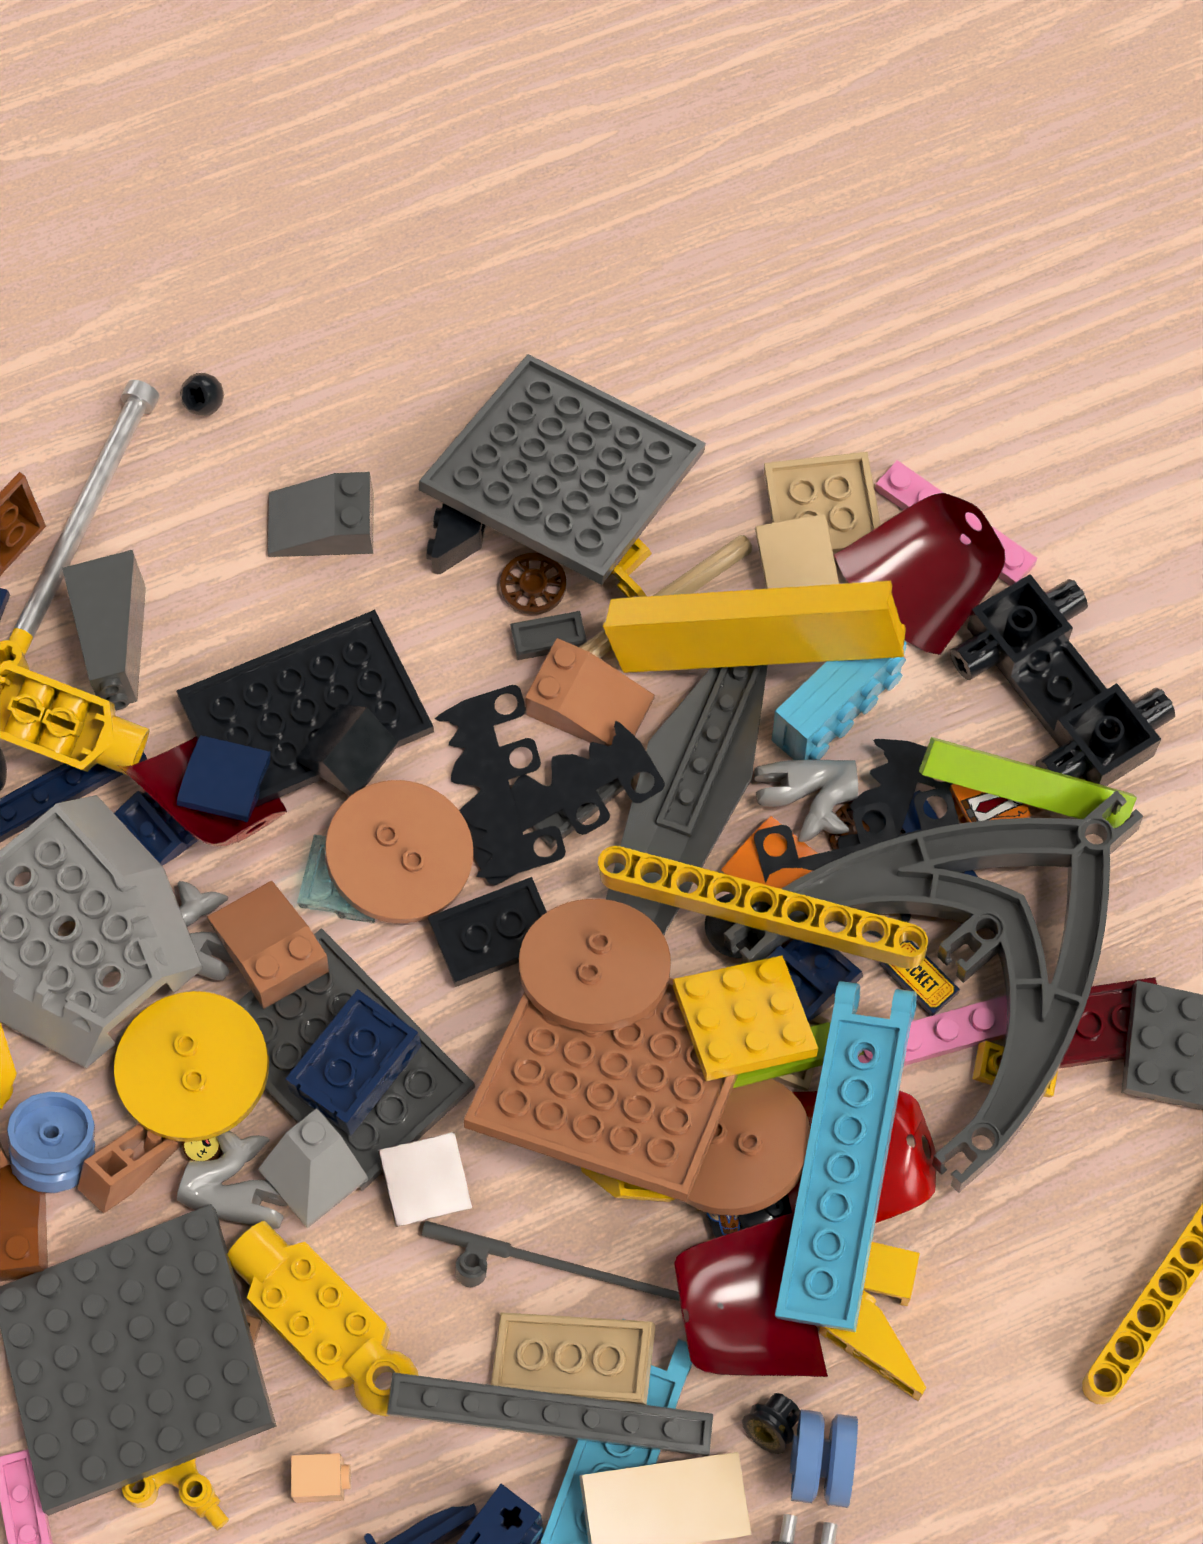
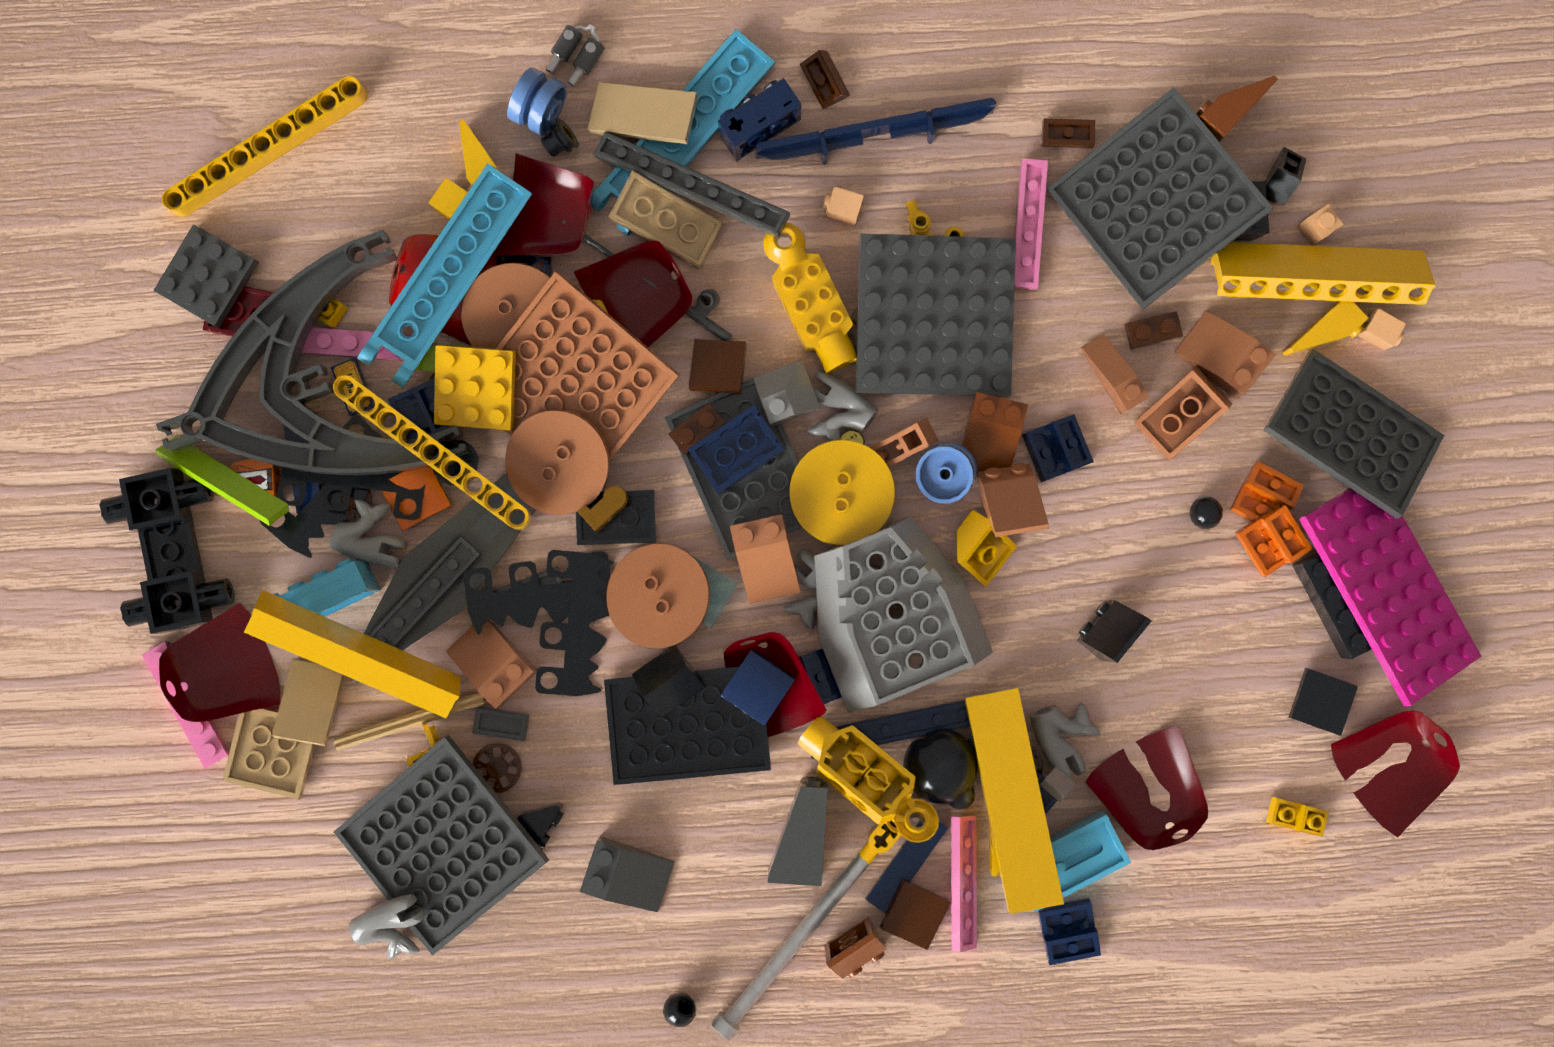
camera: 155 degrees left, 20 degrees up
(422, 1080) = (696, 428): none -> reddish brown plate
(507, 928) = (606, 509): none -> pearl gold leg
(575, 1221) = (631, 300): none -> dark red piece
(593, 367) = (380, 925): none -> light grey piece

